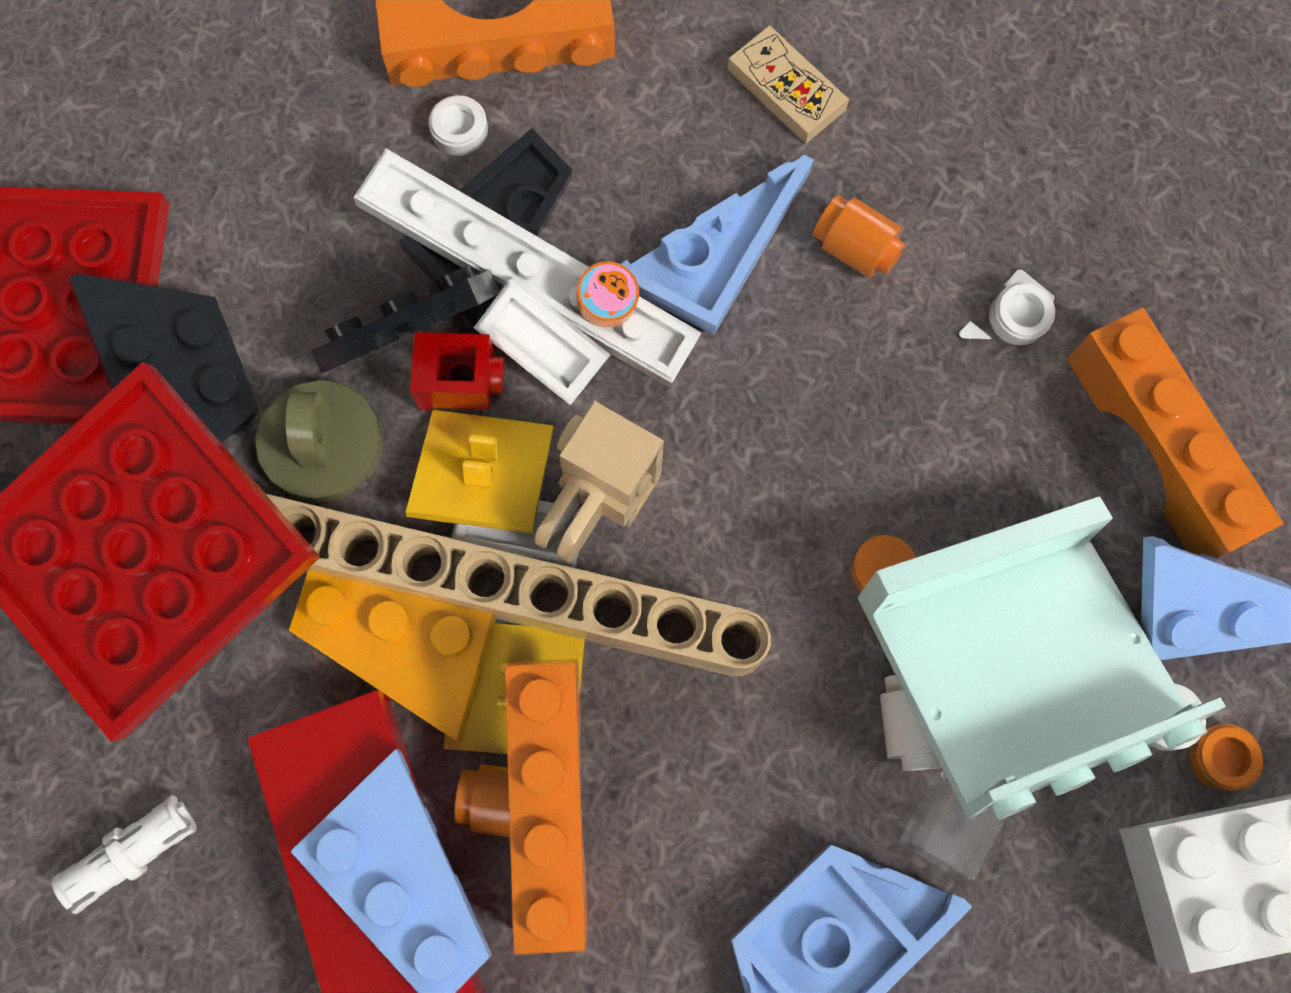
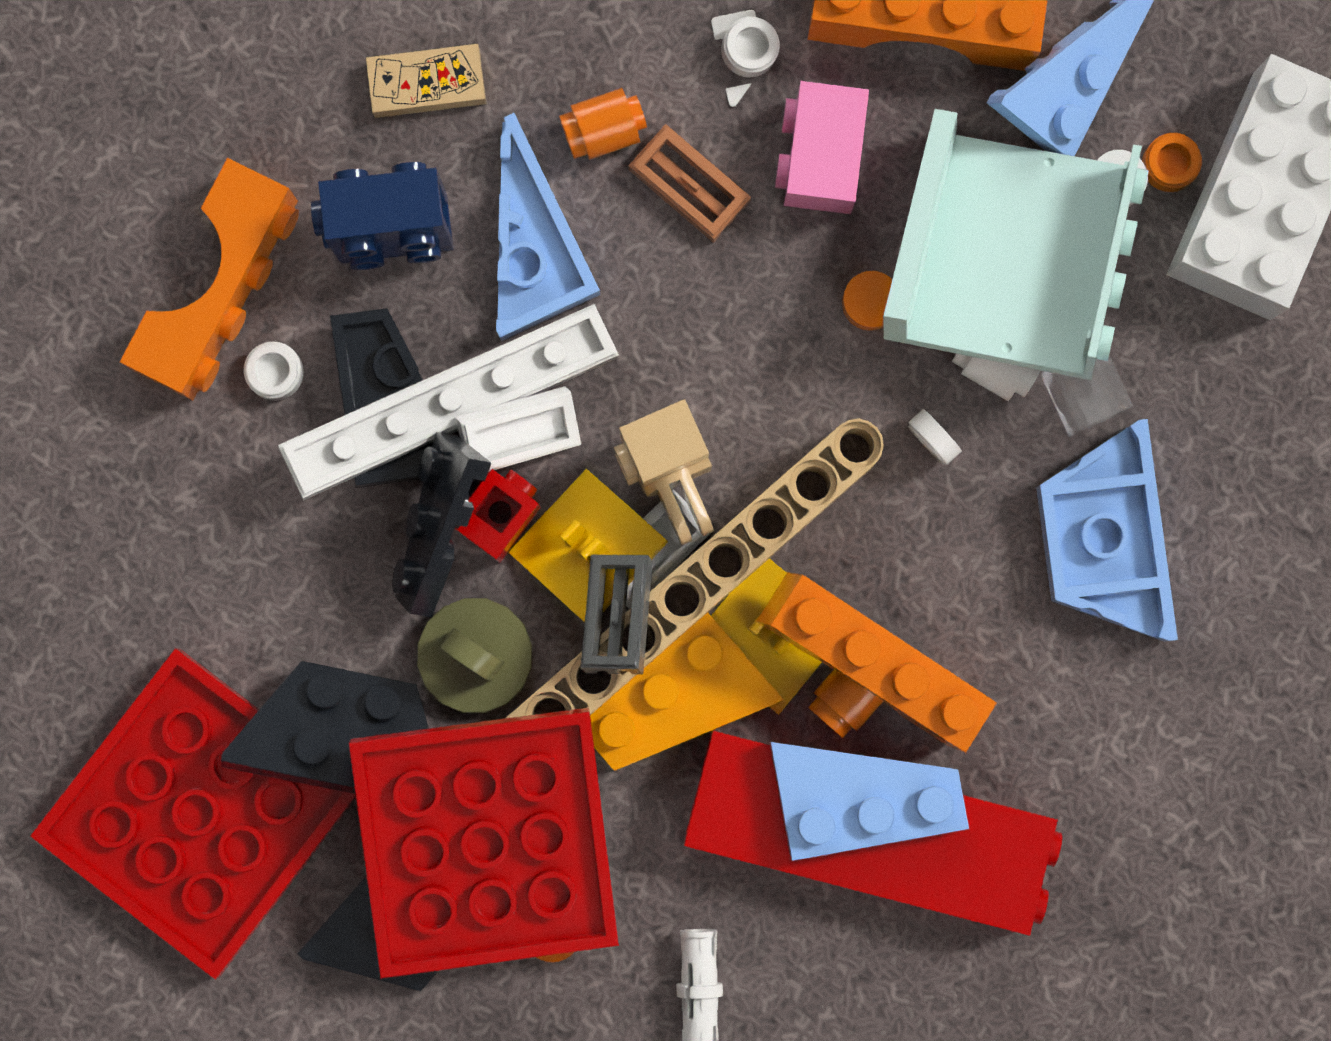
camera: 55 degrees left, 10 degrees up
(432, 534) = (614, 661): none -> dark grey tile
(607, 294) = (520, 355): tile -> none
(647, 108) = (384, 215): none -> dark blue brick
(801, 711) = (934, 437): none -> white tile
(862, 390) = (673, 198): none -> nougat tile
(986, 429) = (825, 147): none -> bright pink brick

